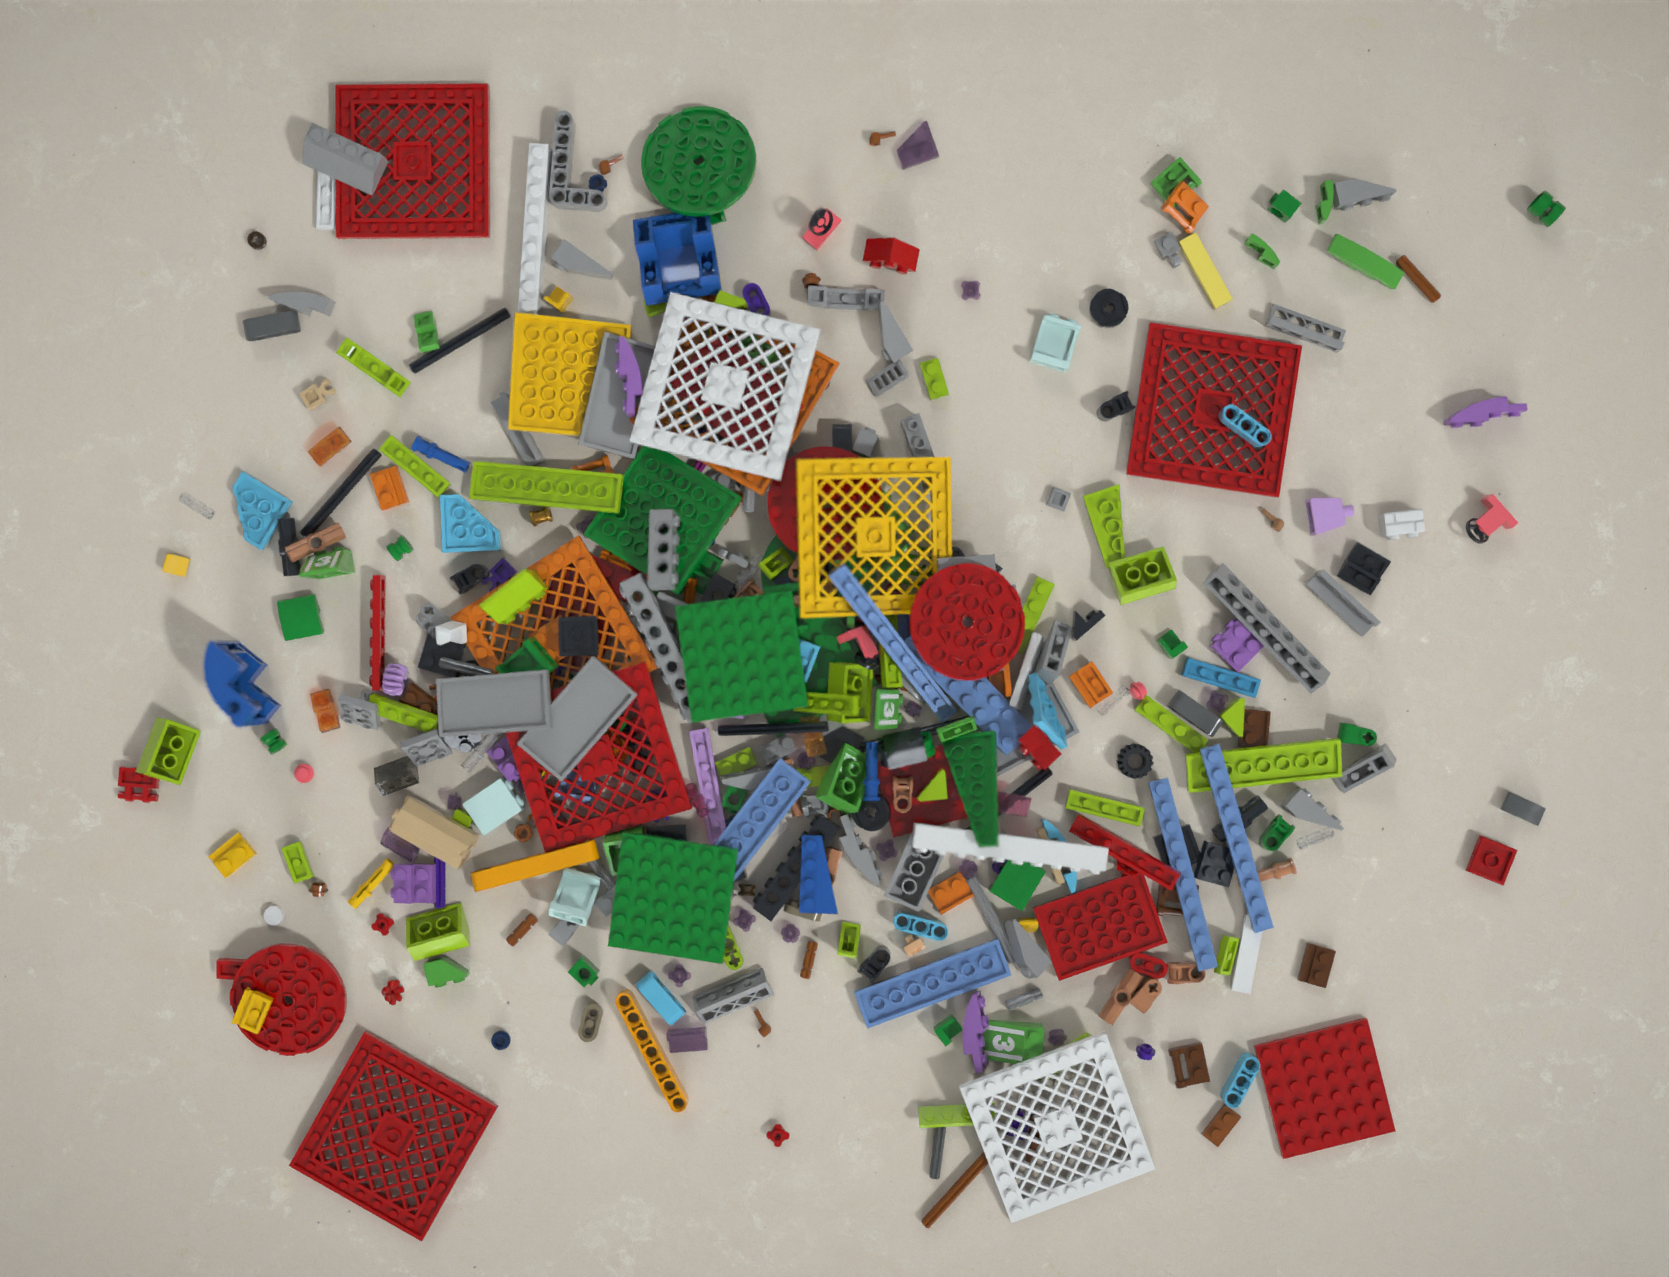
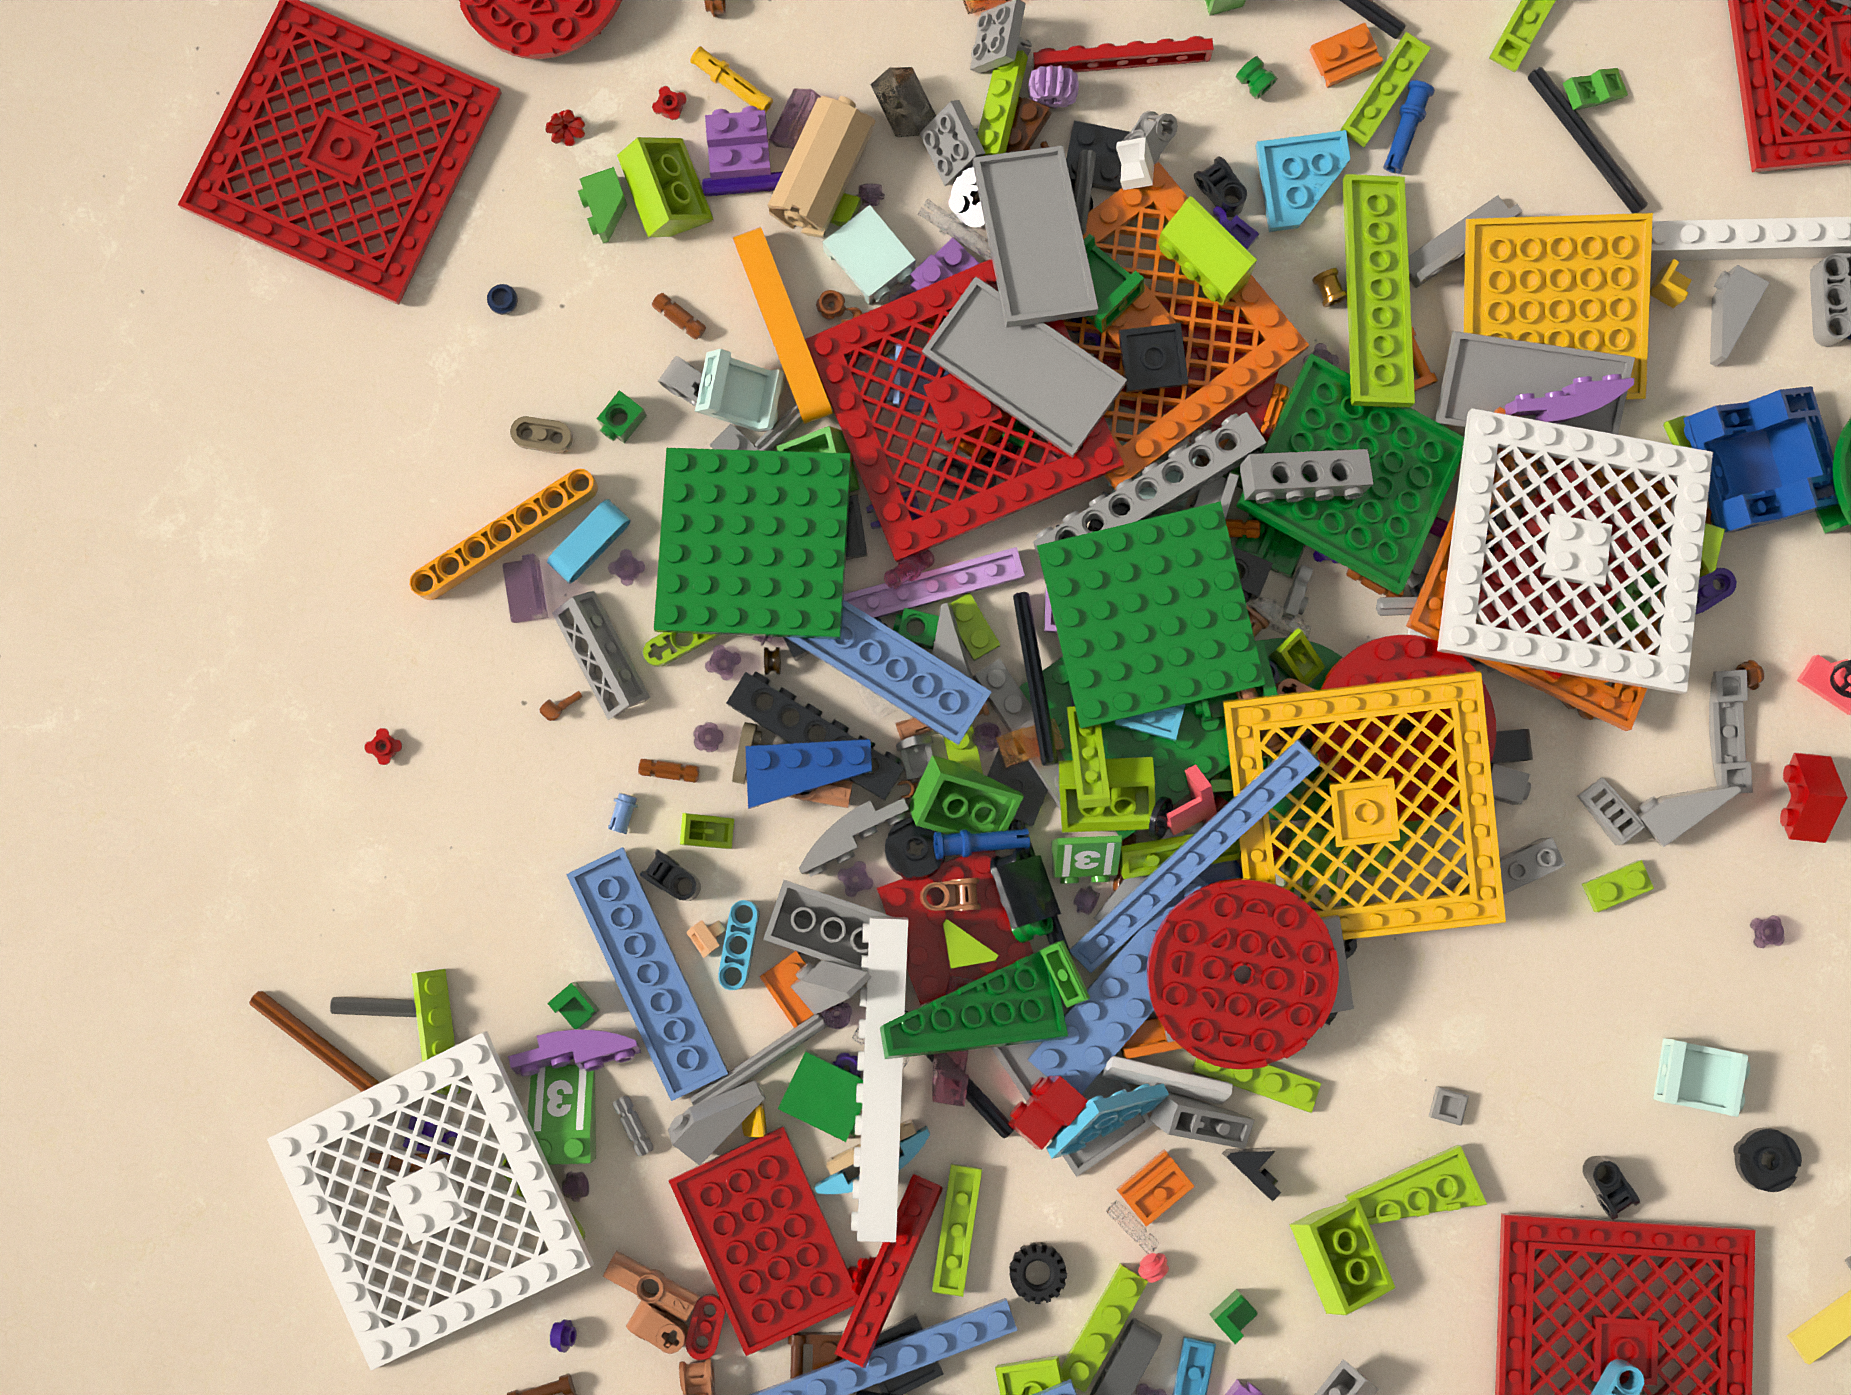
camera: 80 degrees right, 5 degrees down
(832, 990) = (622, 813): none -> medium blue pin
(950, 875) = (827, 984): none -> light grey slope

